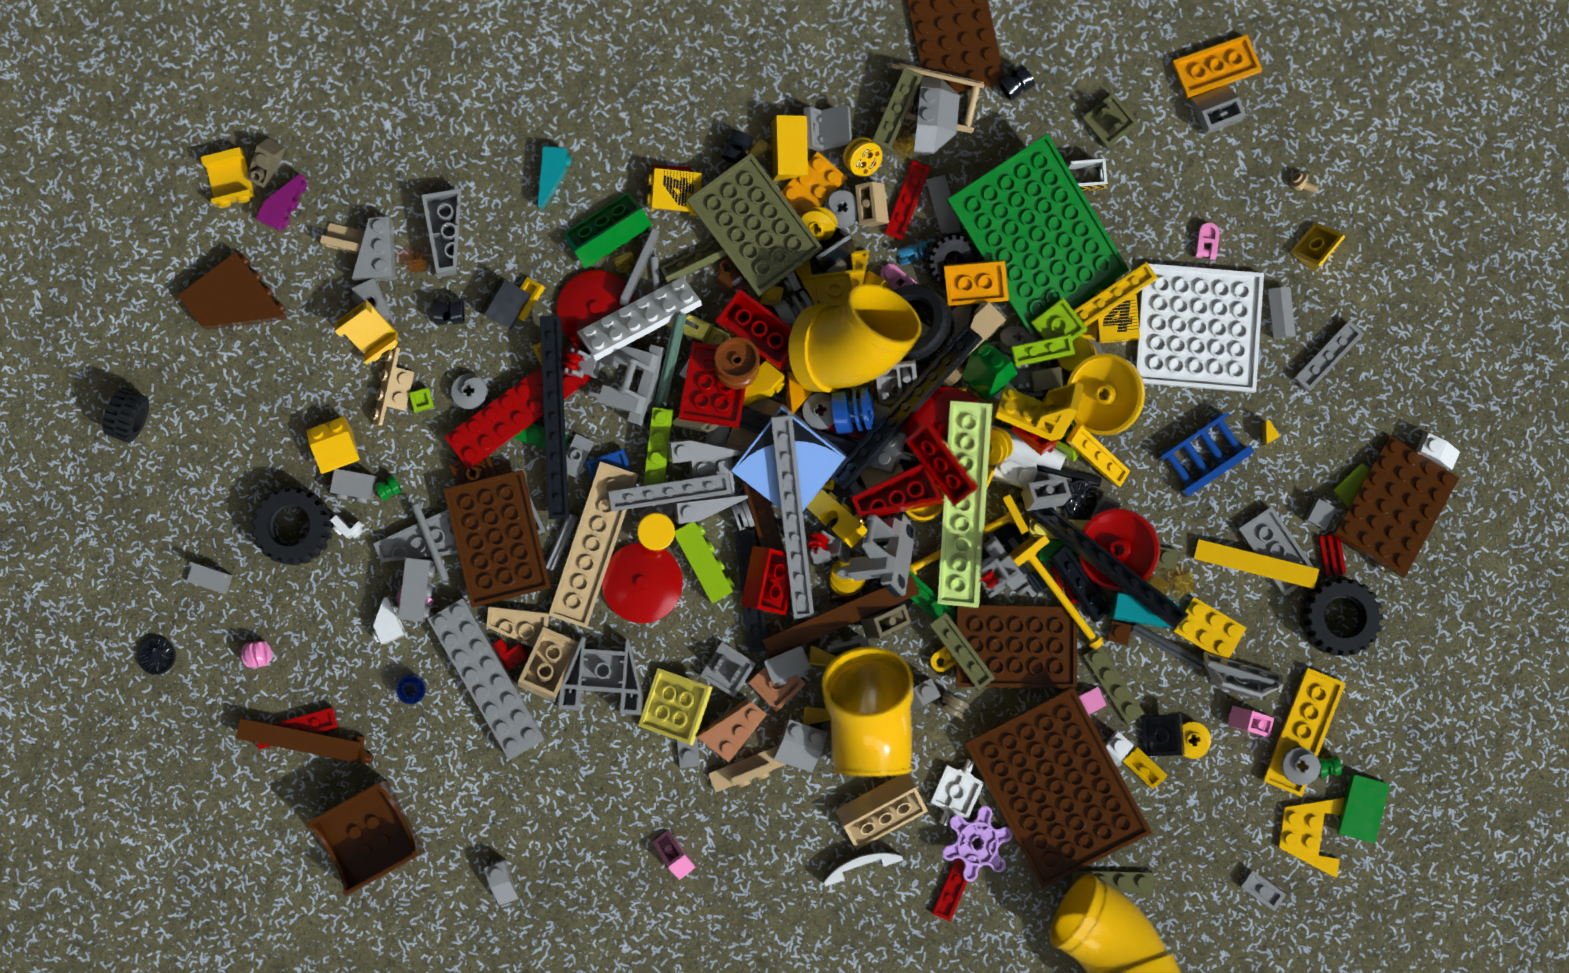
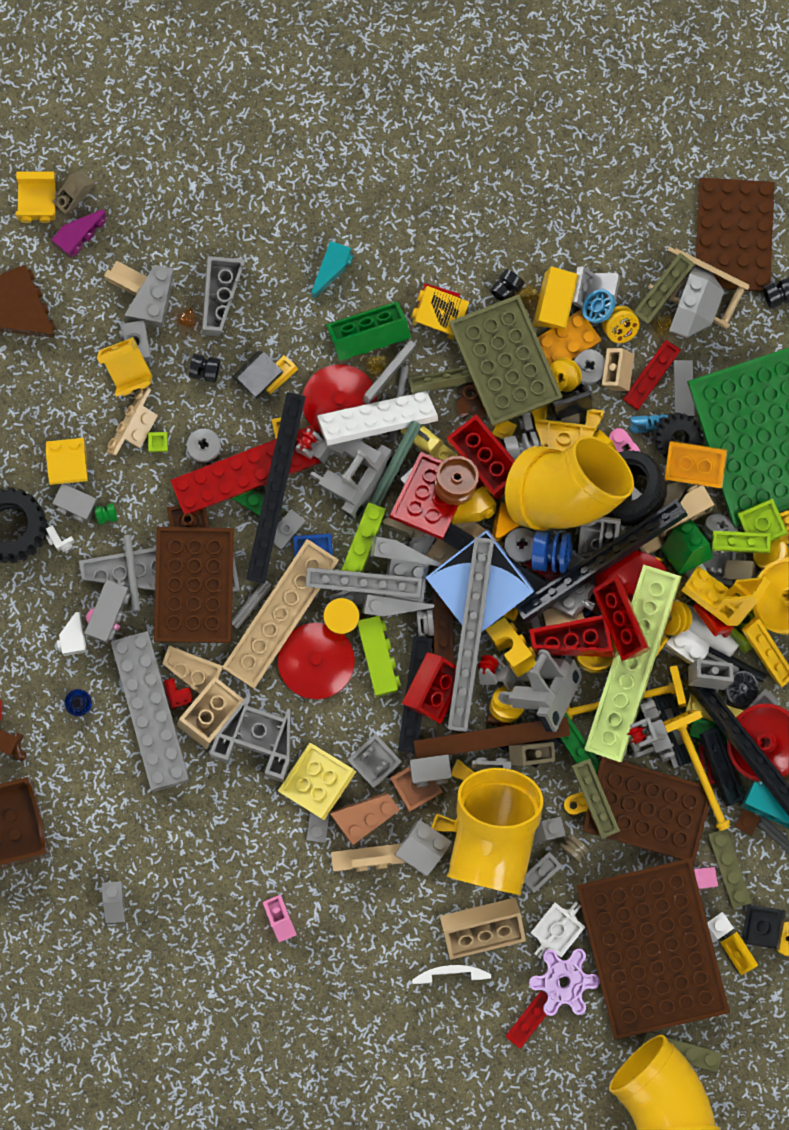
camera: 15 degrees right, 5 degrees down
(835, 144) = (598, 306): none -> dark azure wheel
(926, 737) = (542, 872): none -> light grey plate

